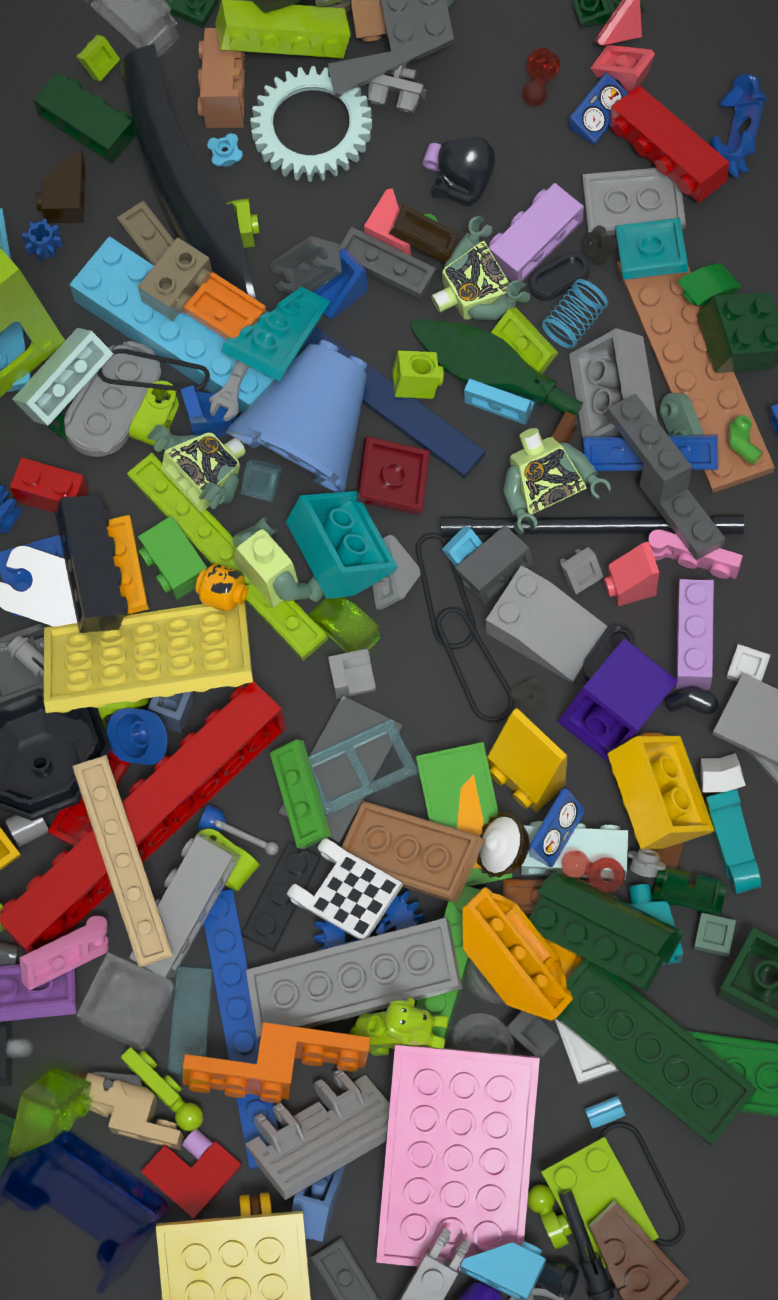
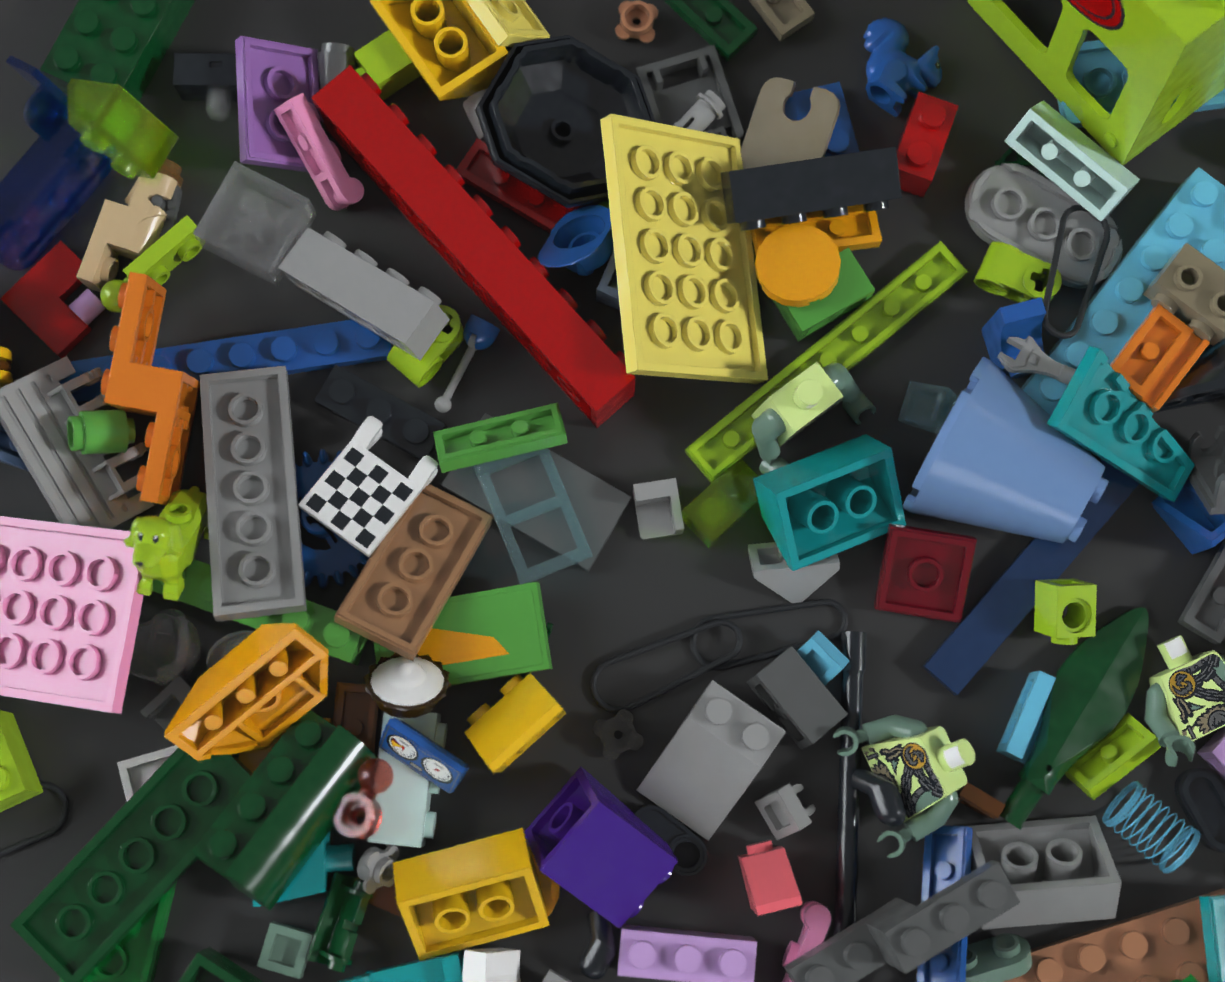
camera: 85 degrees right, 10 degrees up
(122, 861) = (409, 210): tan tile -> none
(154, 571) = (797, 265): none -> light orange tile
(189, 1015) = (236, 302): clear light blue tile -> none
(200, 465) = (943, 328): torso -> none
(221, 587) = (777, 349): light orange head -> none
(310, 1105) = (100, 432): none -> bright green brick
(564, 495) = (883, 796): none -> black arm
(605, 1112) = (77, 794): medium azure piece -> none

